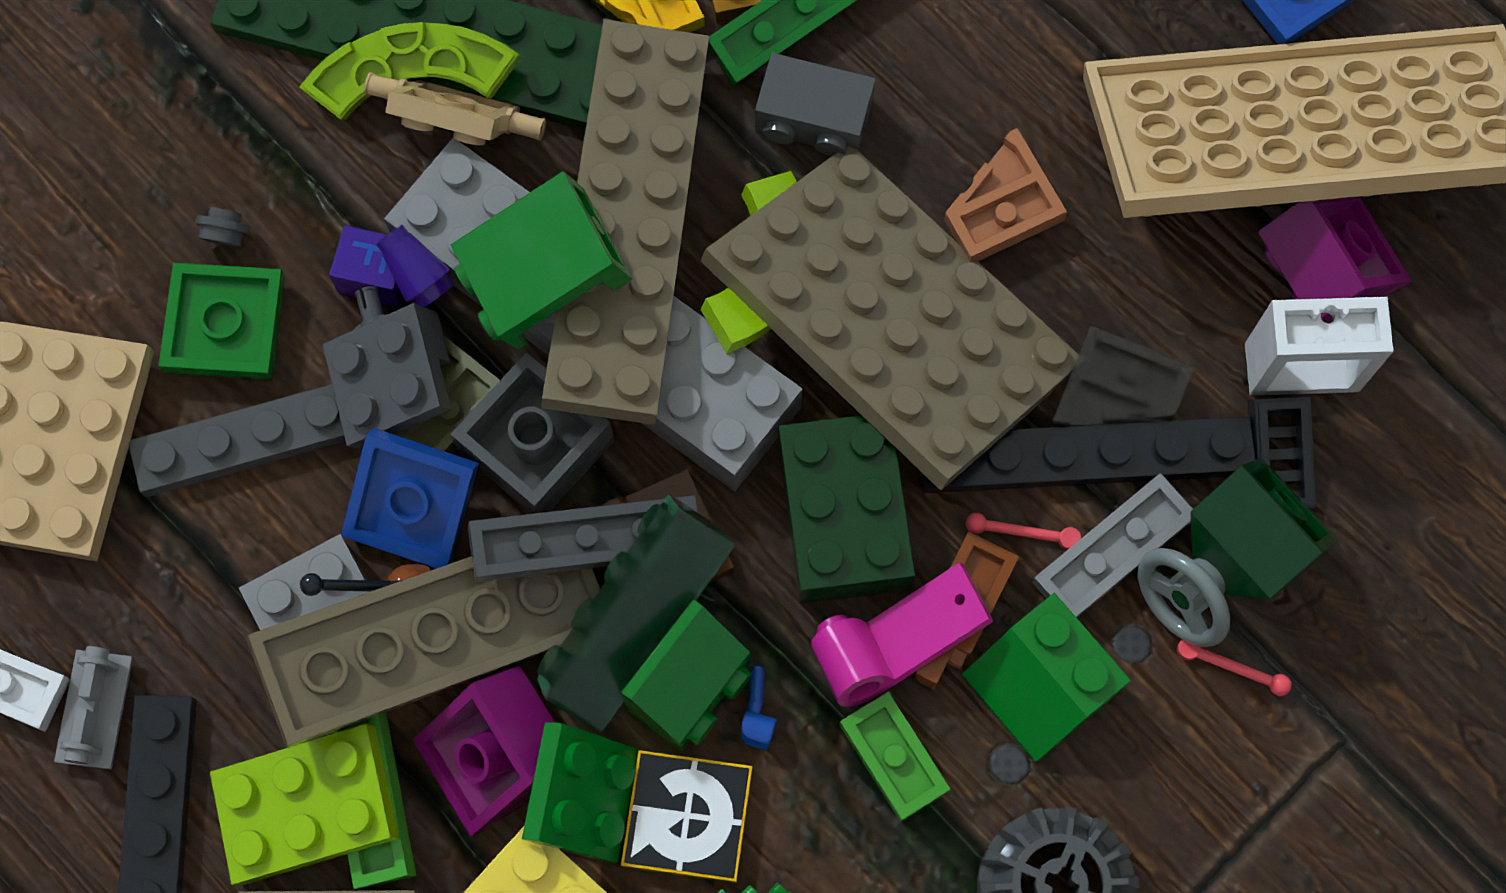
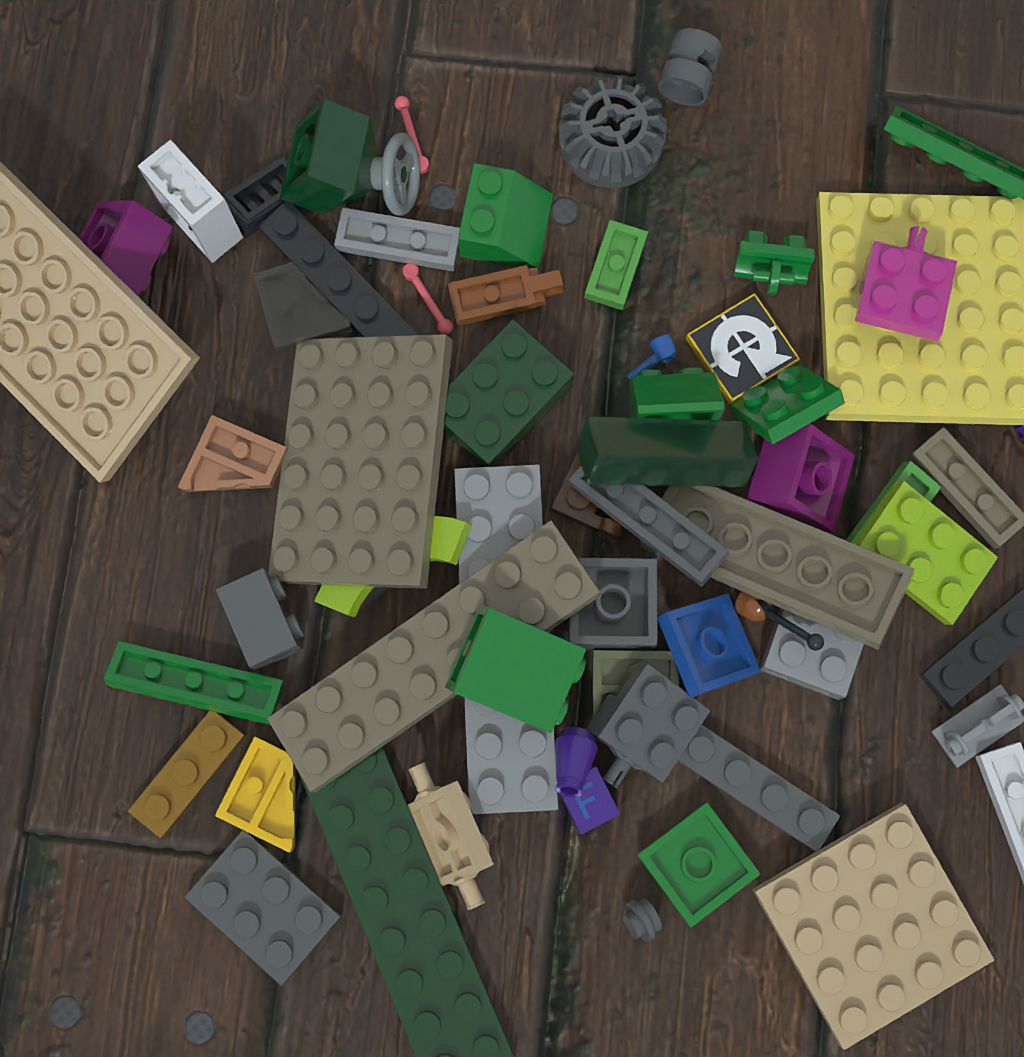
camera: 130 degrees left, 5 degrees up
(410, 53) = (432, 901): lime tile -> none
(875, 655) = (550, 307): dark pink door -> none

